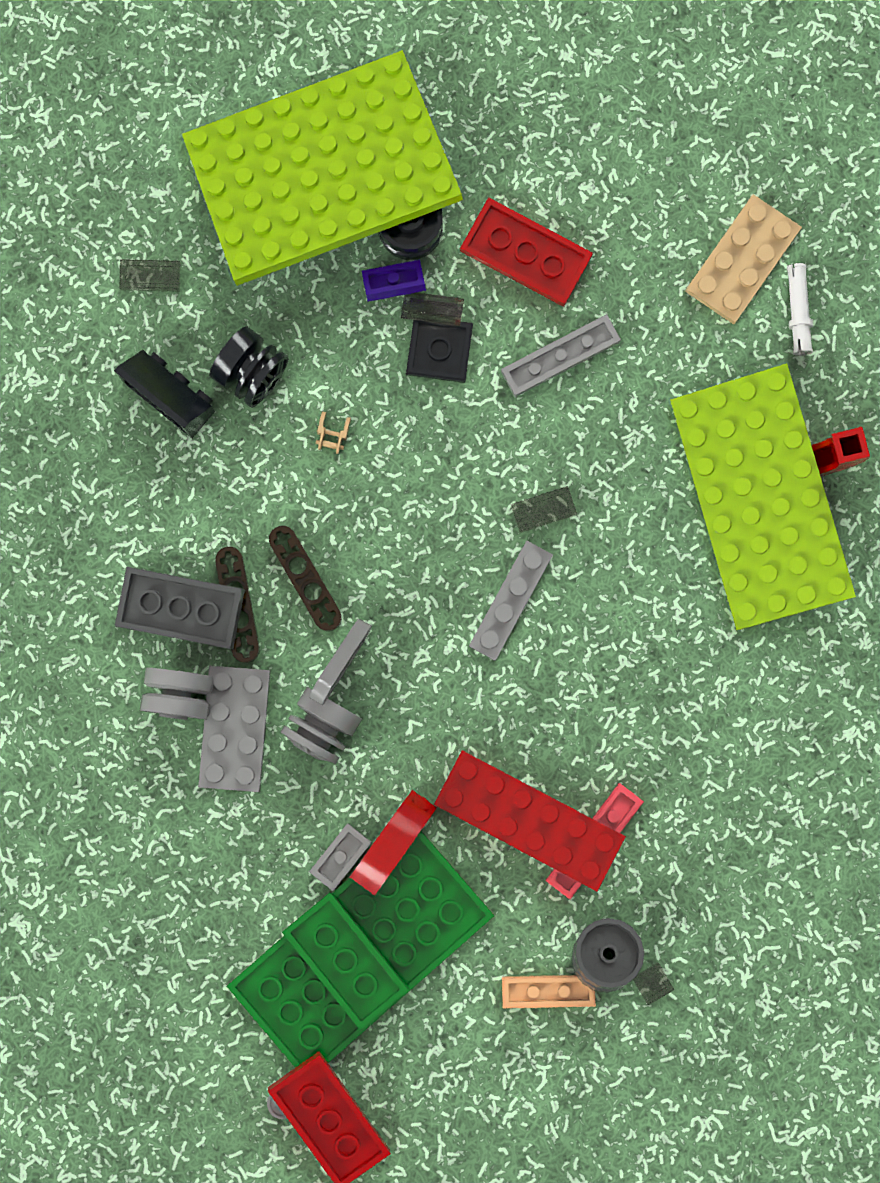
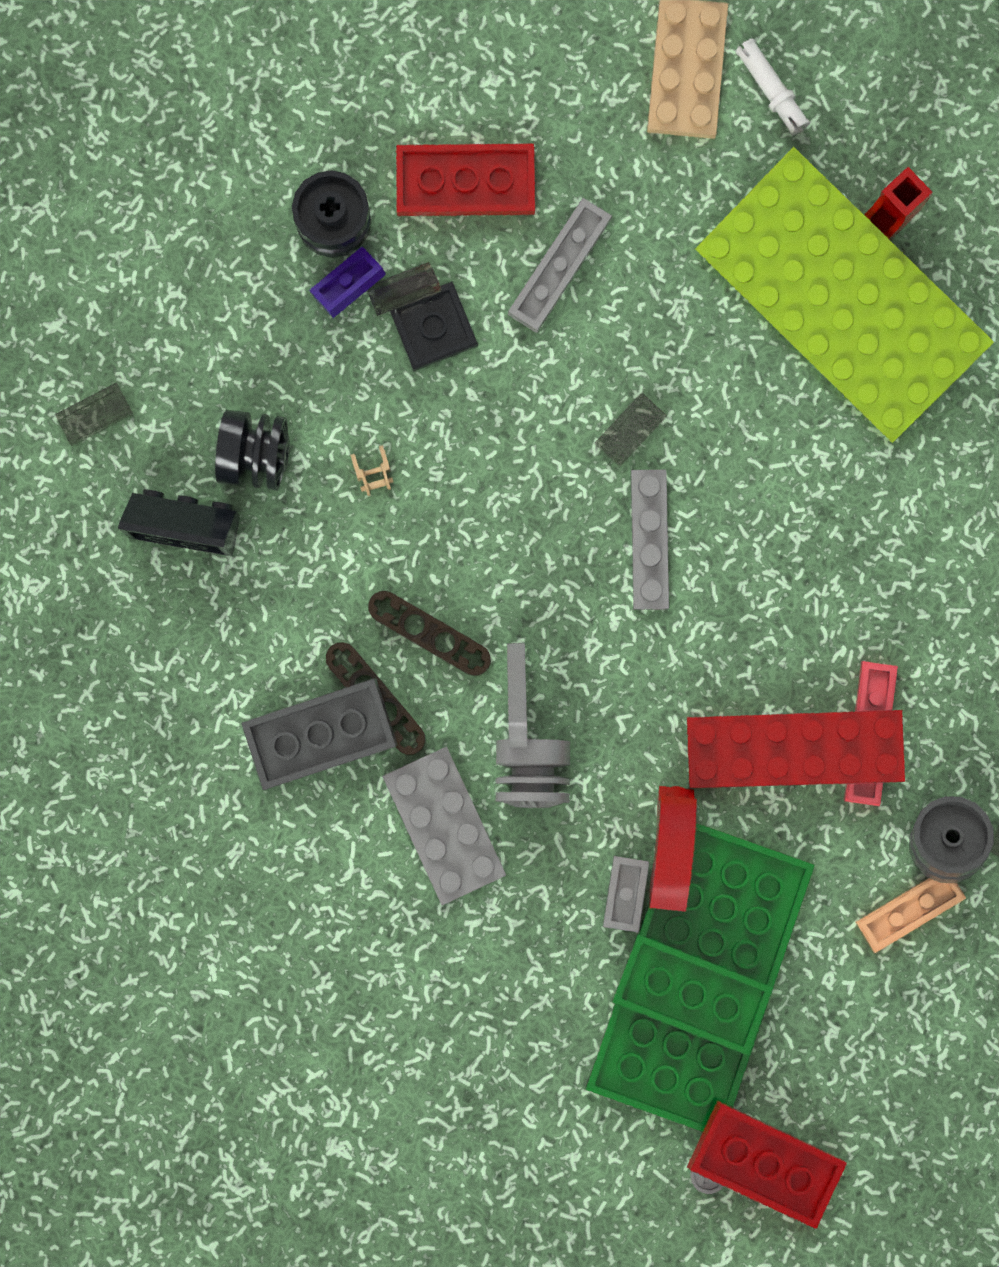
camera: 30 degrees left, 0 degrees up
(176, 694) = (367, 822): light grey wheel -> none
(321, 167) = (210, 207): lime plate -> none

